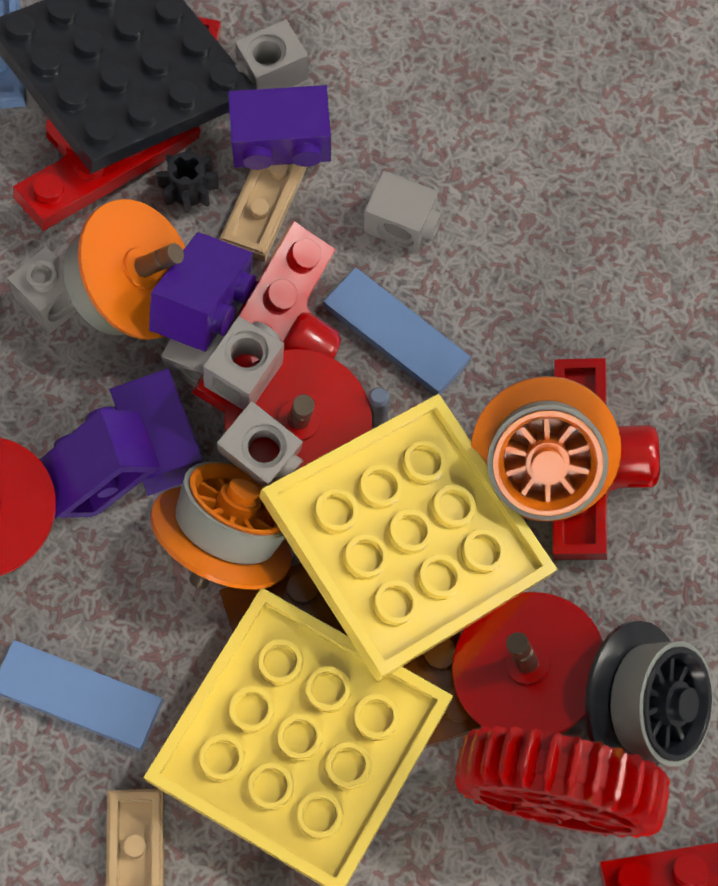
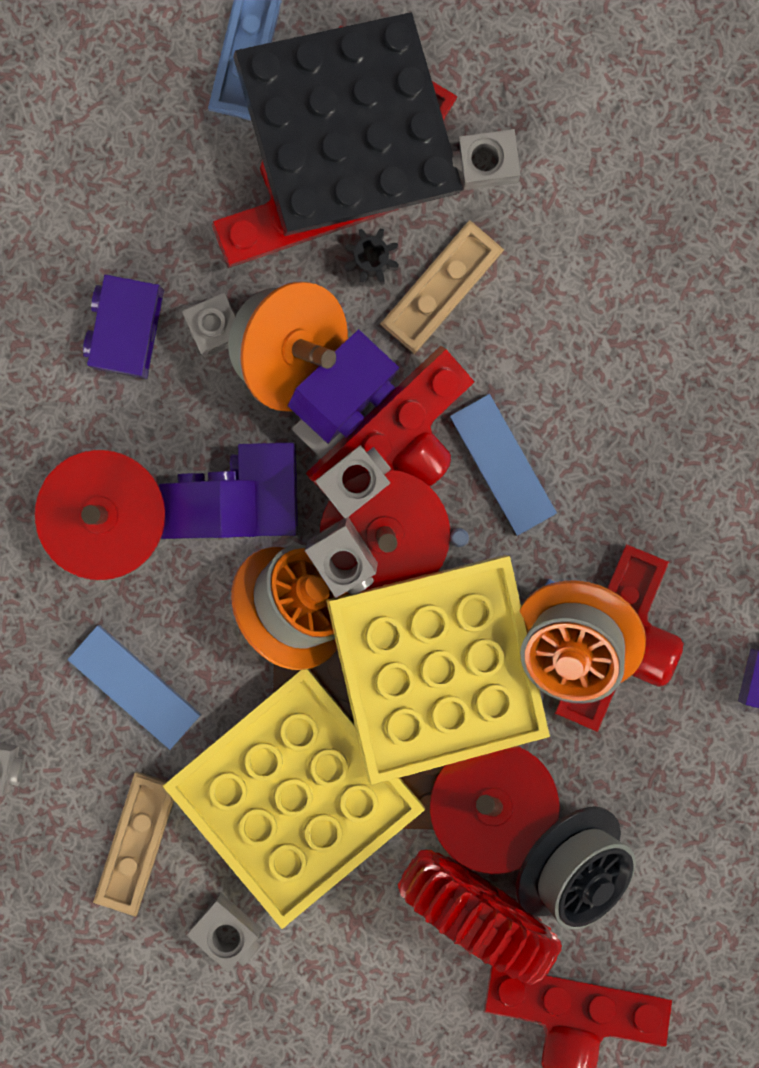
camera: 20 degrees right, 20 degrees up
(280, 126) = (469, 241): dark purple brick -> none
(402, 212) = (550, 358): light grey brick -> none

